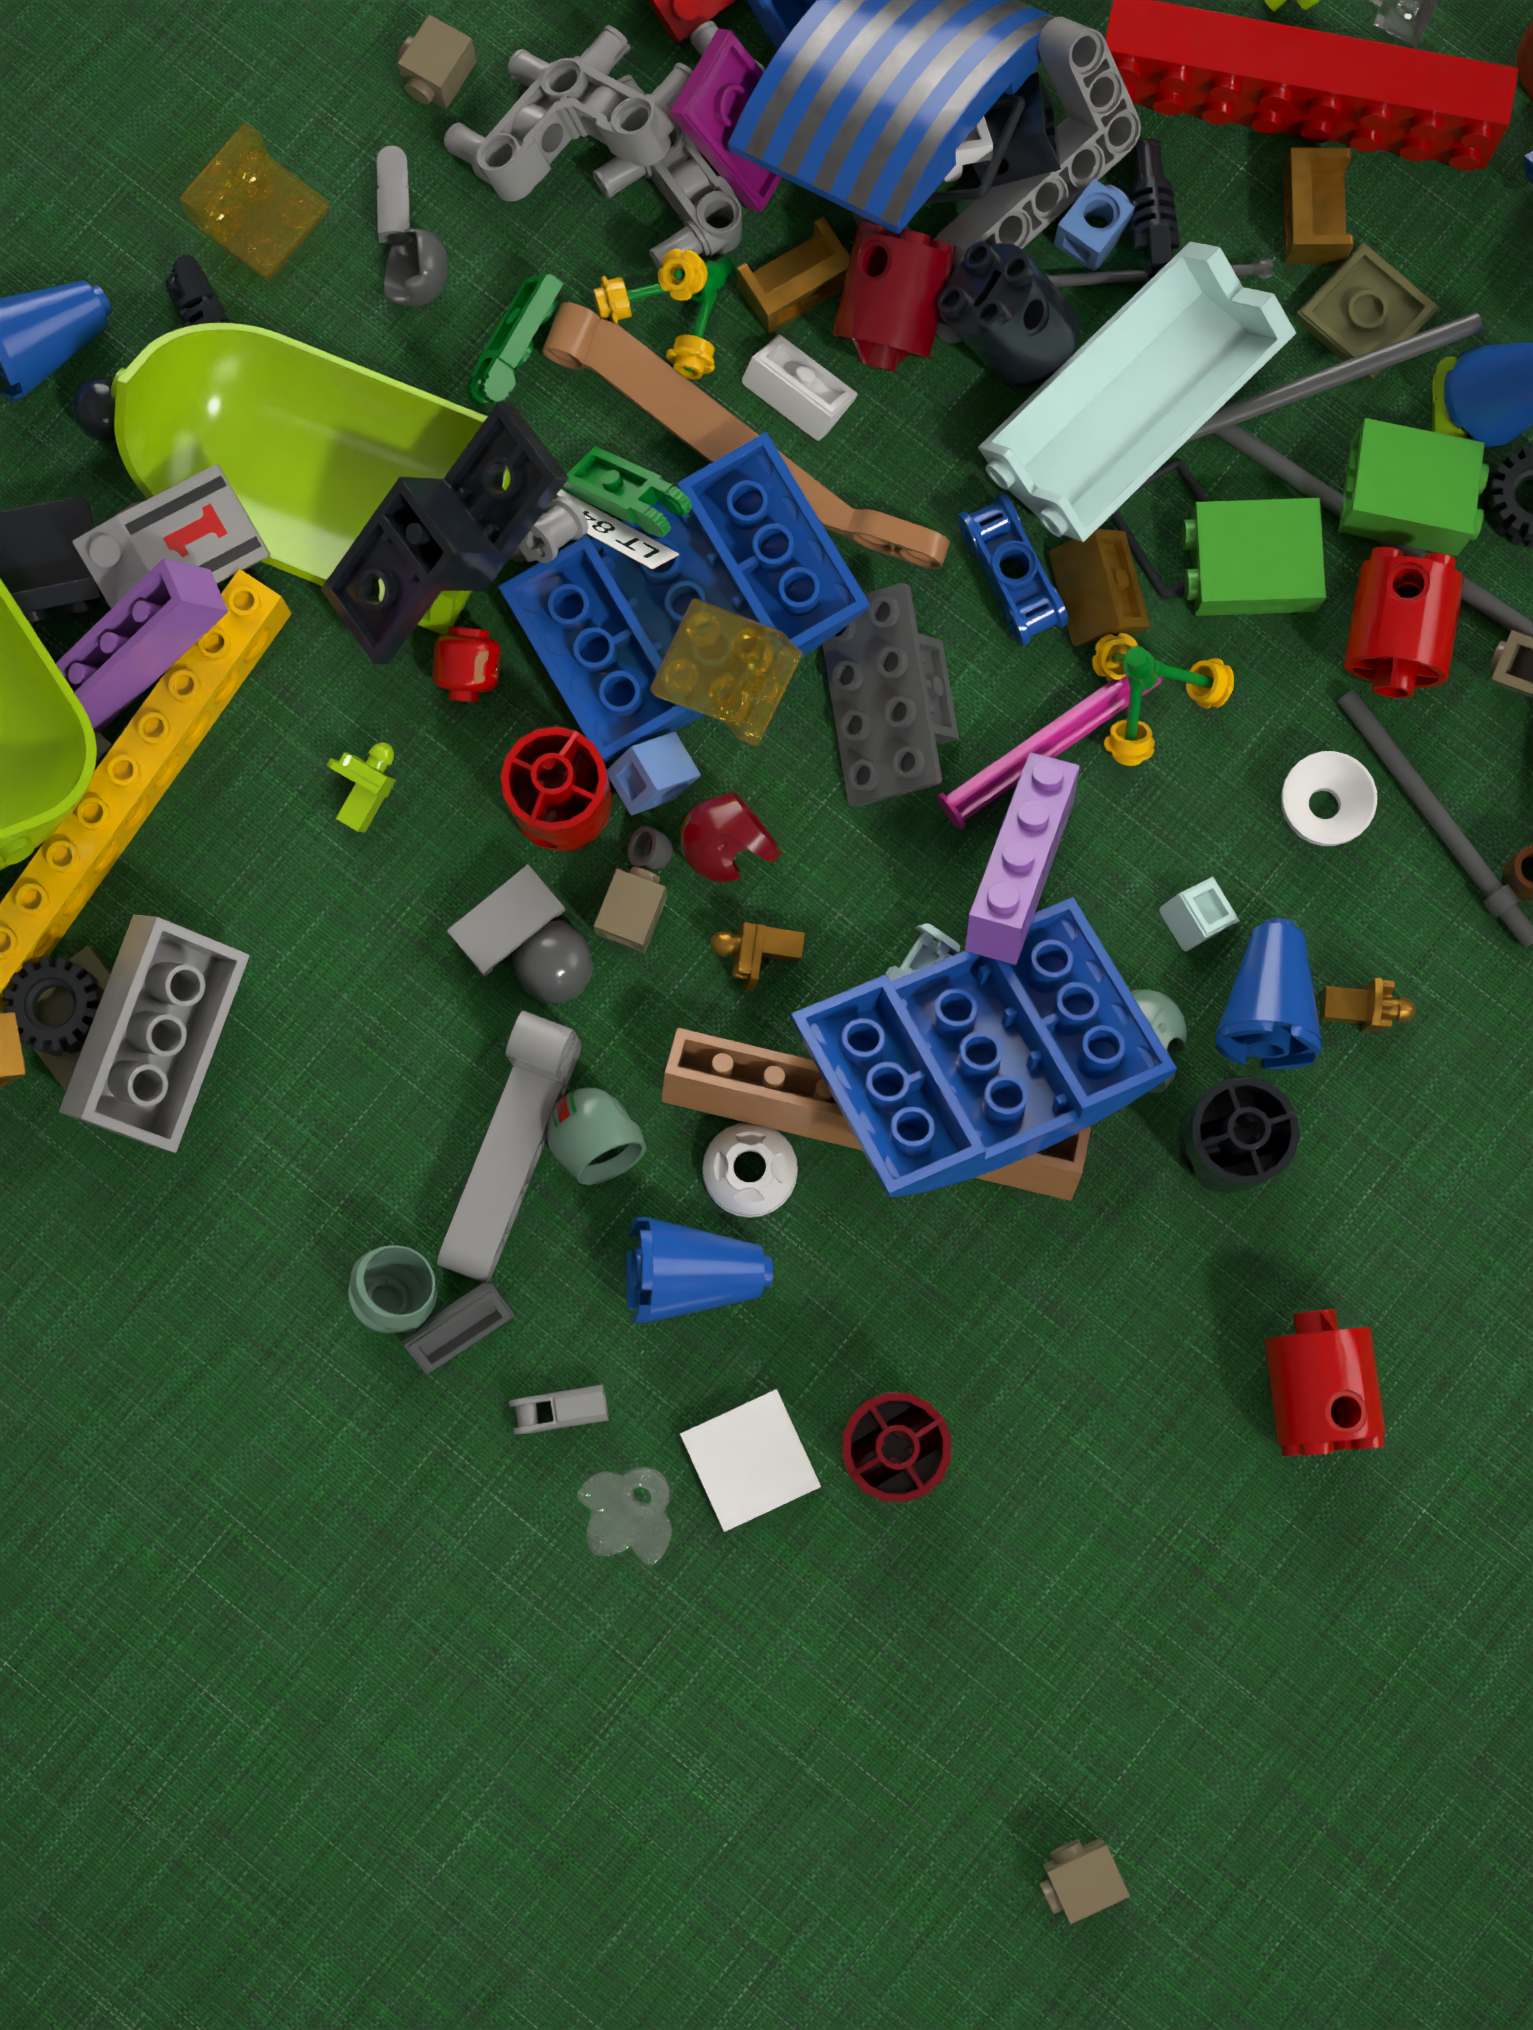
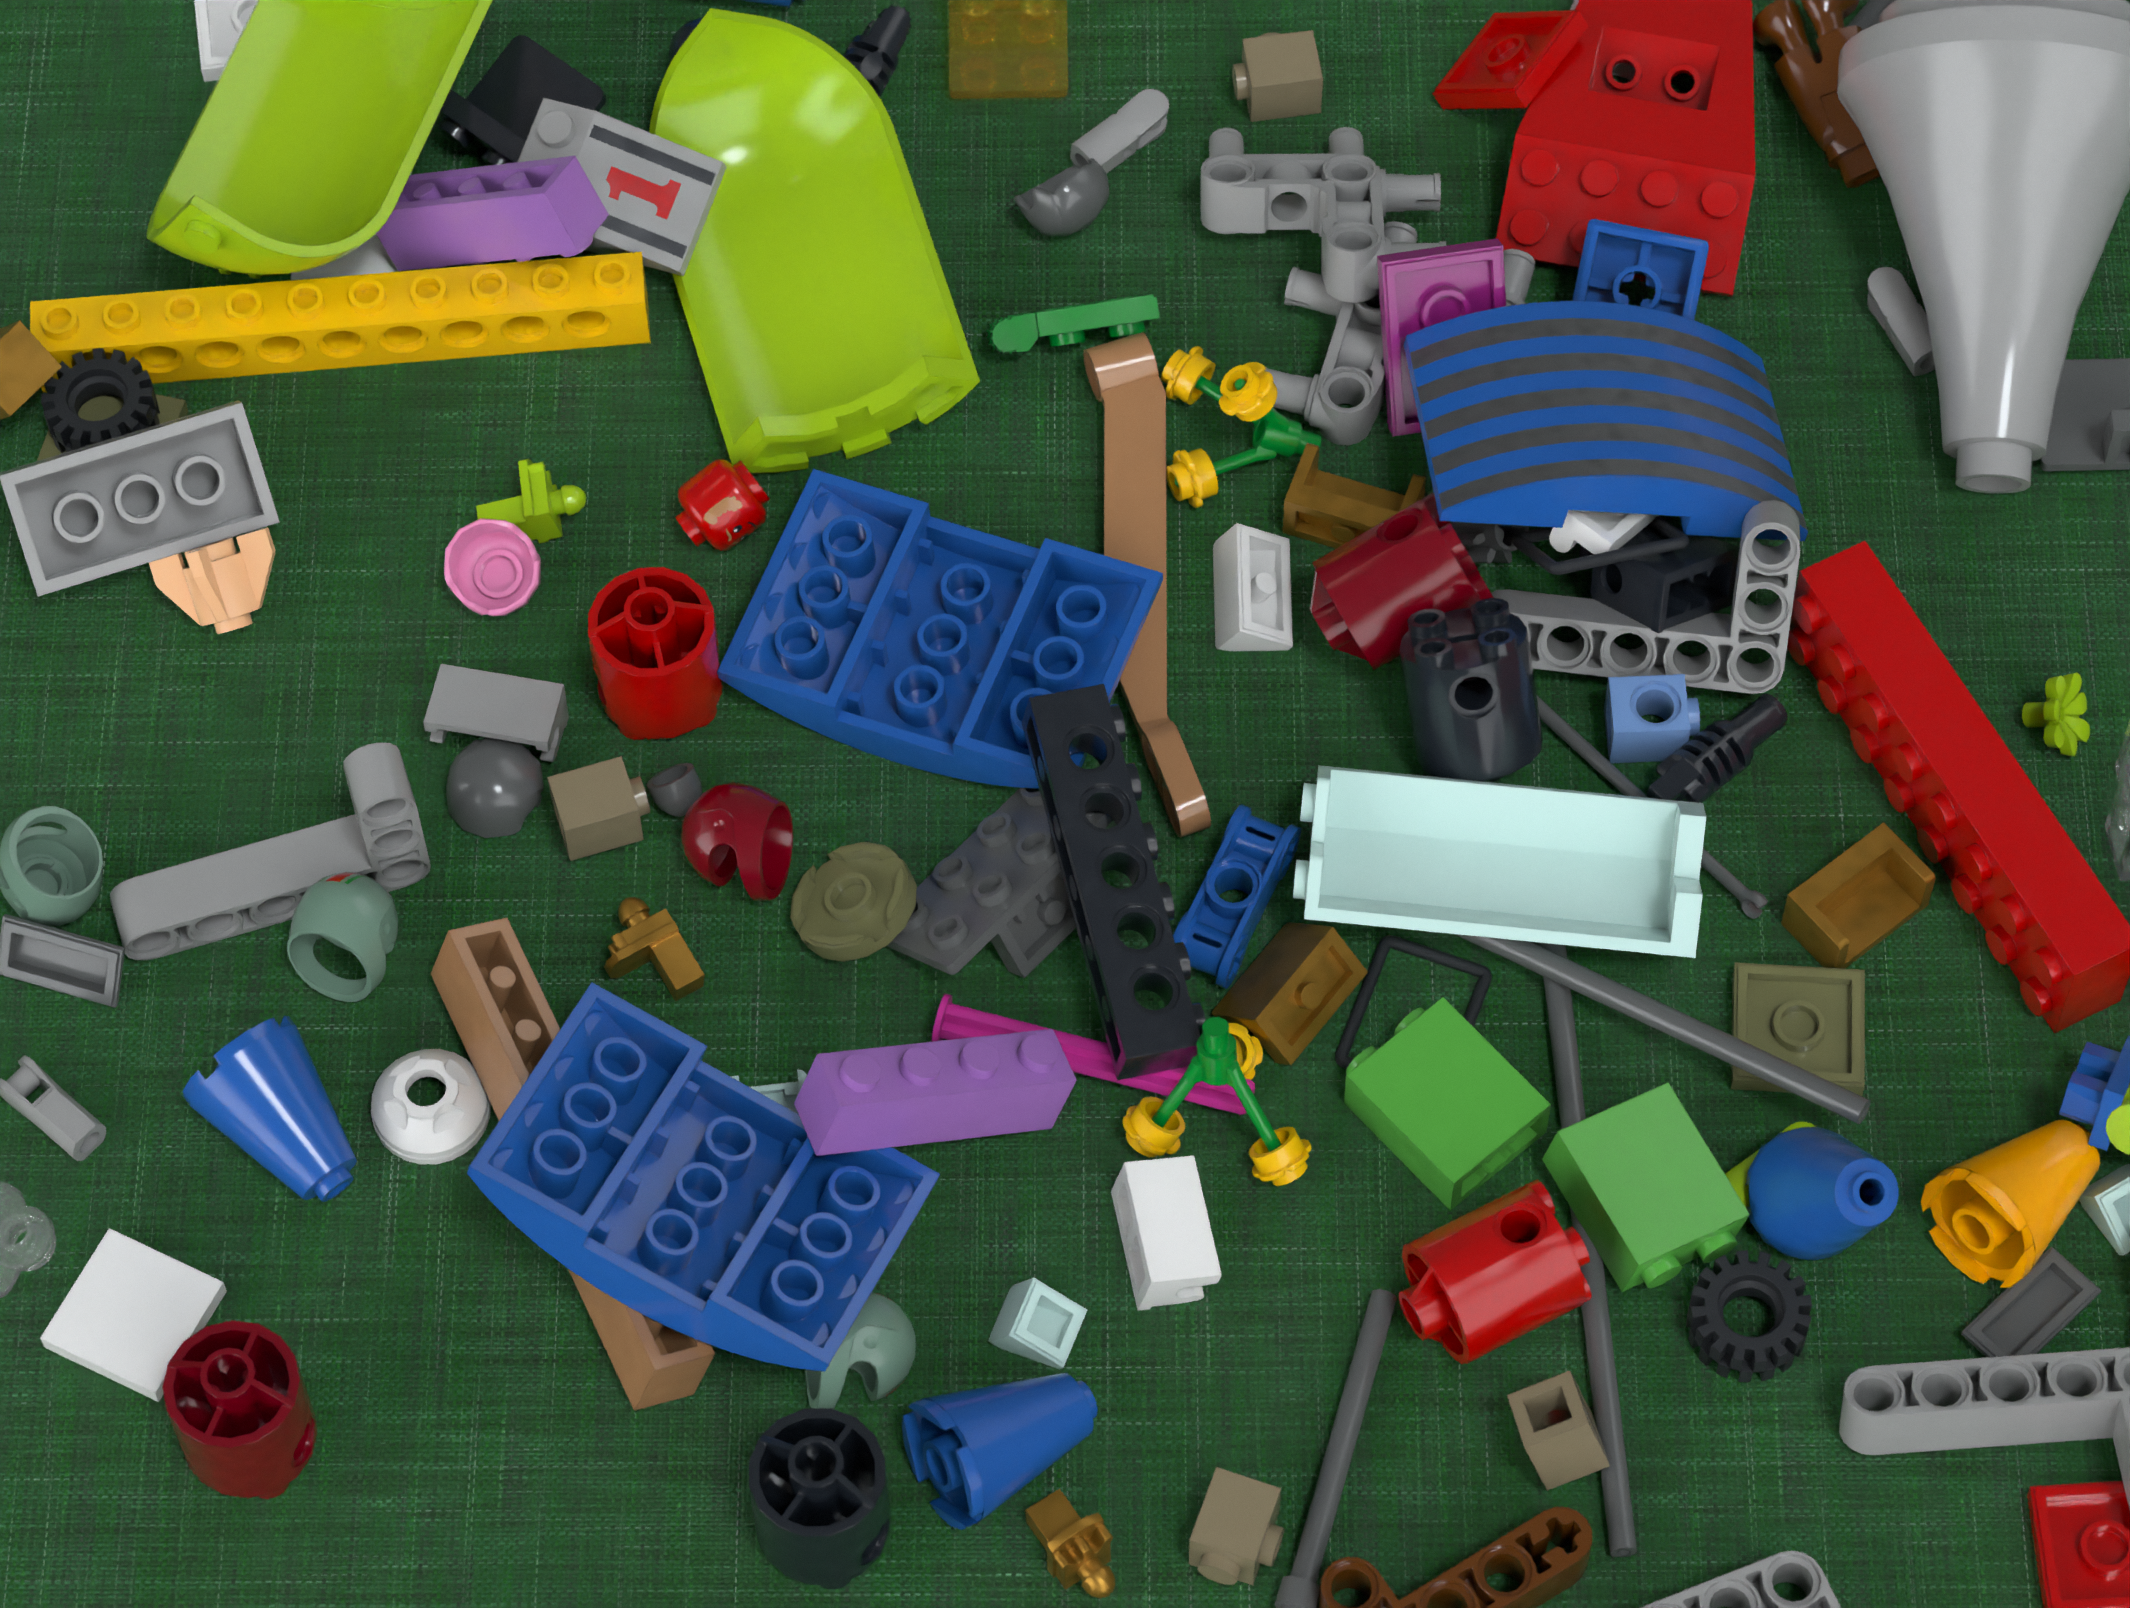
camera: 50 degrees right, 20 degrees down
(258, 1025) = (219, 581): none -> light nougat brick
(394, 842) = (492, 567): none -> bright pink hair
(444, 533) = (811, 372): black bracket -> none
(553, 529) = (890, 465): light grey connector -> none
(622, 536) = (949, 507): white sticker -> none
(626, 490) = (1003, 506): green hinge -> none
(653, 773) = (749, 730): medium blue brick -> none
(727, 669) = (892, 693): clear yellow bracket -> none
(827, 801) = (854, 902): none -> olive tile
(939, 642) = (1137, 1037): none -> black brick
(1206, 791) = (1165, 1231): none -> white hinge
(1342, 778) = (1257, 1317): white piece -> none
(1435, 903) = (1236, 1529): none -> dark tan brick

